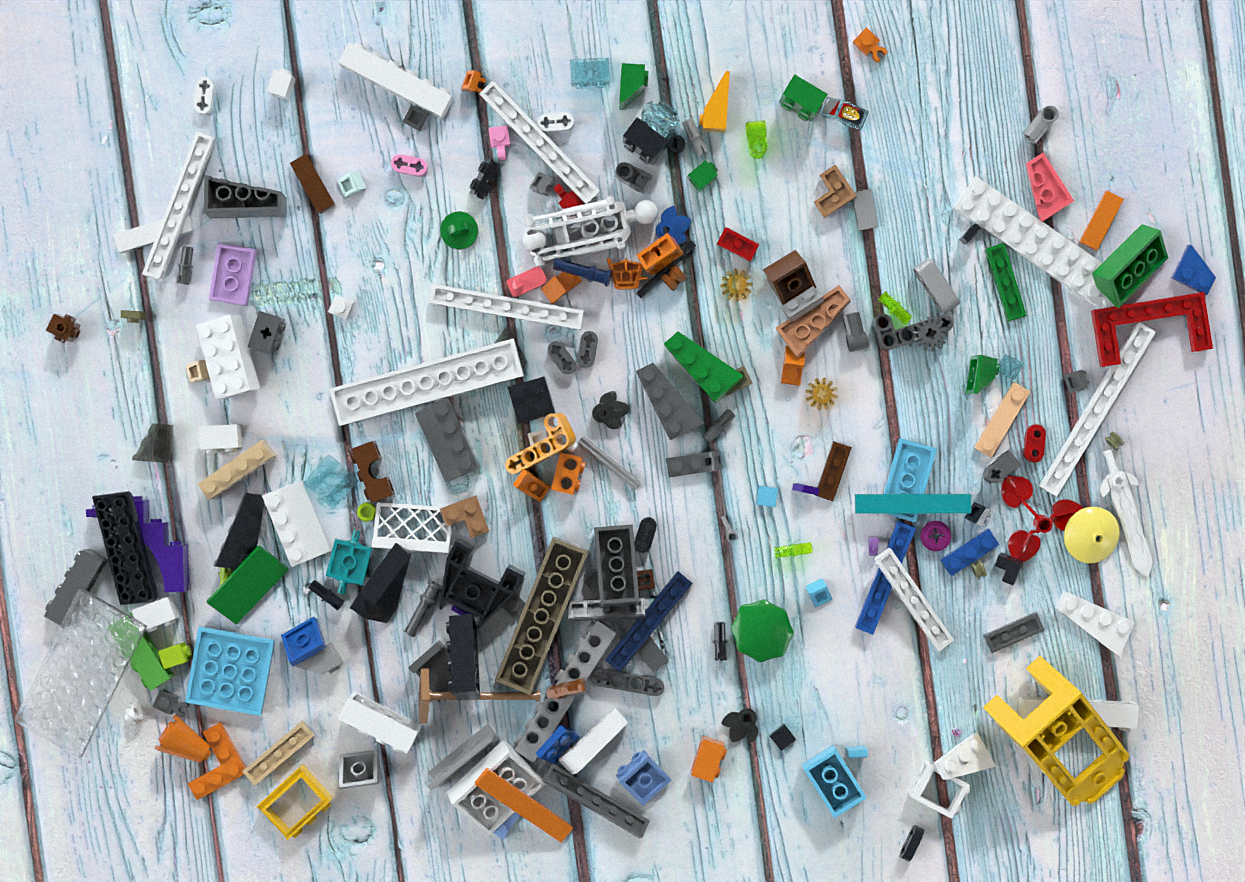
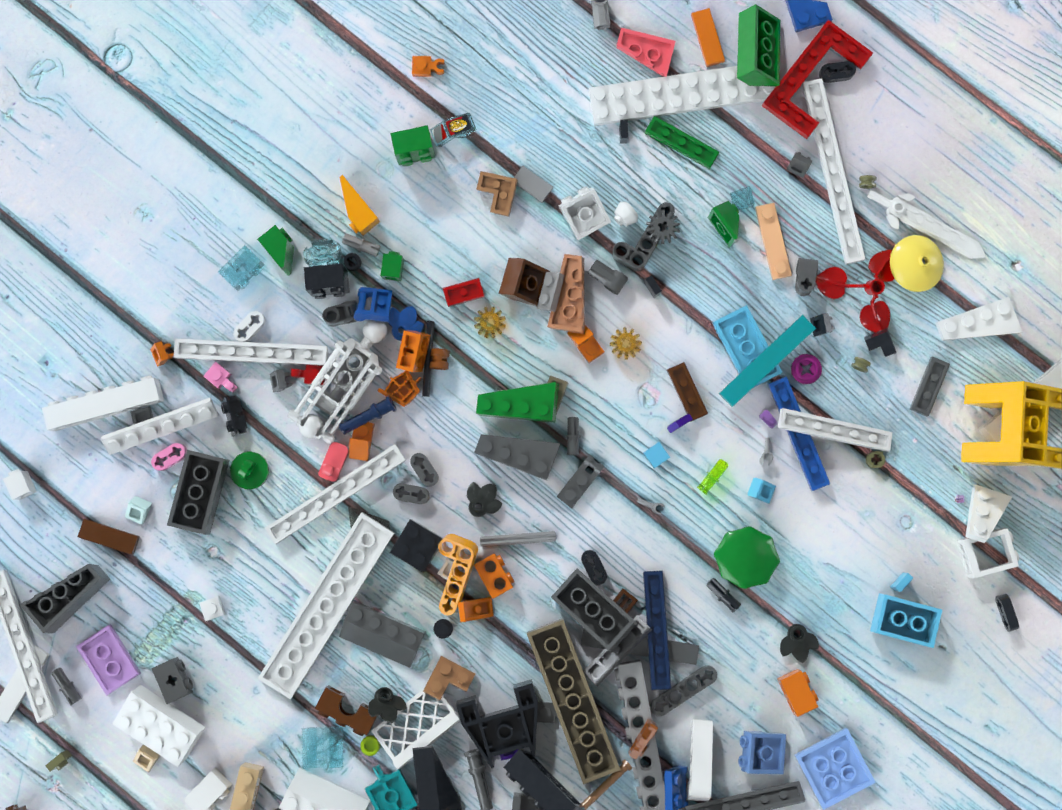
camera: 40 degrees left, 5 degrees down
(404, 496) = (387, 707): none -> pearl dark grey plate
(407, 212) = (198, 492): none -> dark grey brick
(423, 136) = (159, 426): none -> white plate
(495, 477) = (443, 628): none -> black plate
(667, 196) = (379, 306): none -> blue plate
(683, 835) = (834, 768): none -> light blue plate
(756, 135) = (405, 203): clear neon green piece -> none
(782, 737) = (837, 623): black tile -> none
(847, 570) = (766, 455): none -> light grey hand
(881, 370) = (652, 286): none -> black tile
(883, 267) = (584, 212): none -> white plate
(895, 308) = (620, 233): clear neon green axle -> none
(912, 297) = (625, 214): none -> white cone
(923, 642) = (878, 464): none -> olive bush
(936, 286) = (635, 190): light grey beam -> none
(969, 552) = (841, 358): blue plate -> none
(1032, 443) = (810, 237): red plate -> none
(1169, 341) = (837, 76): none -> black beam

